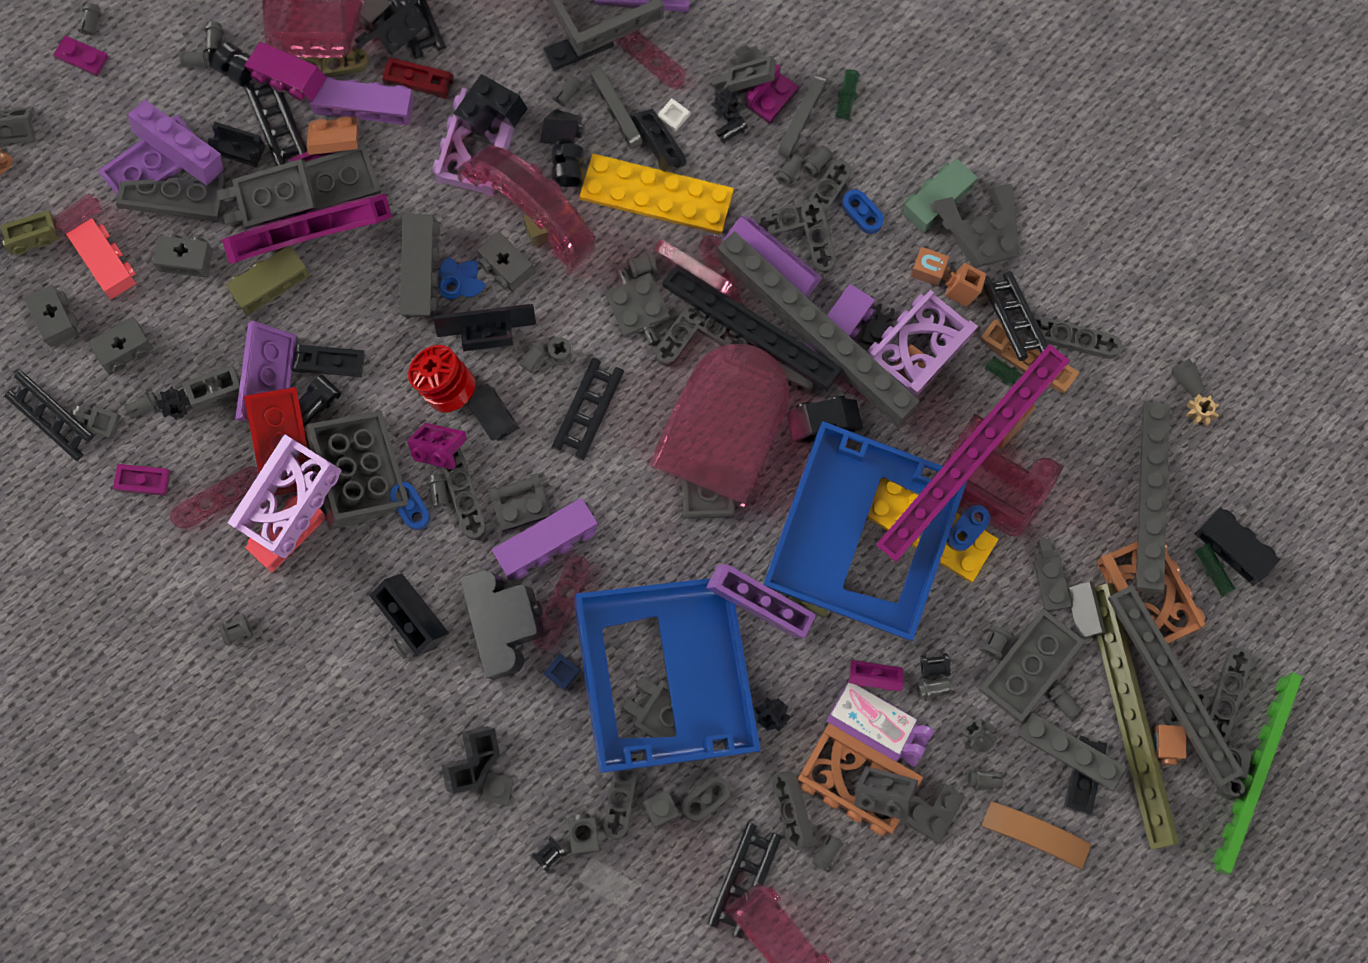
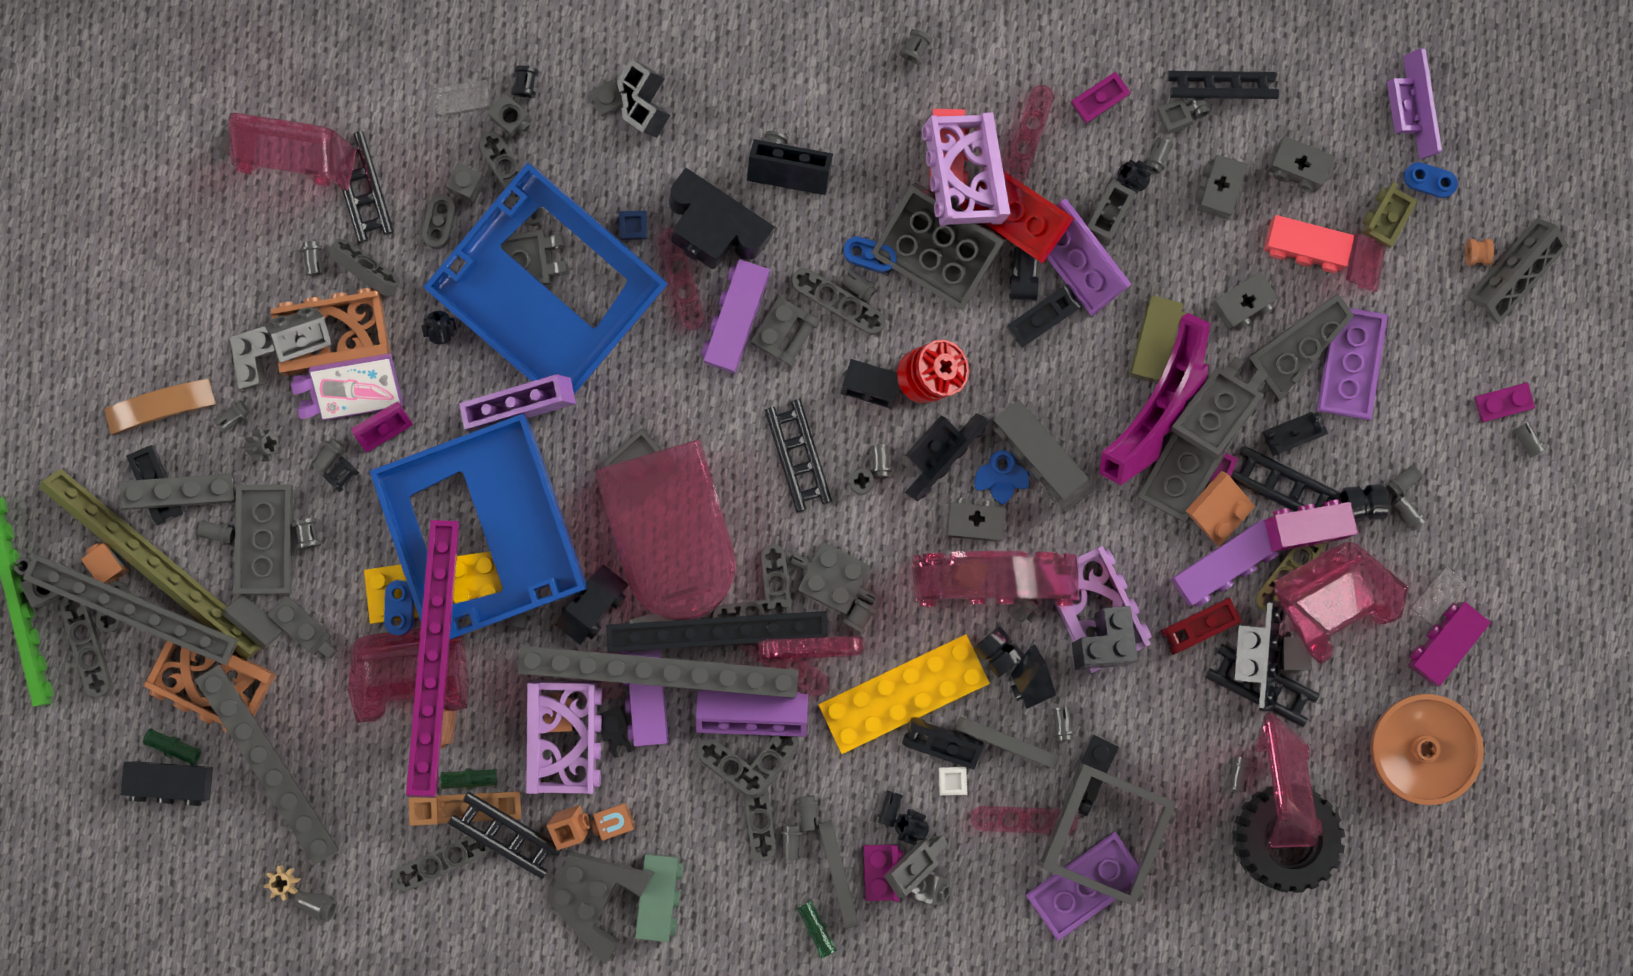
camera: 140 degrees right, 10 degrees up
(175, 142) = (1342, 387): medium lavender brick -> none
(436, 445) = (891, 318): magenta bracket -> none
(865, 211) = (713, 825): blue plate -> none

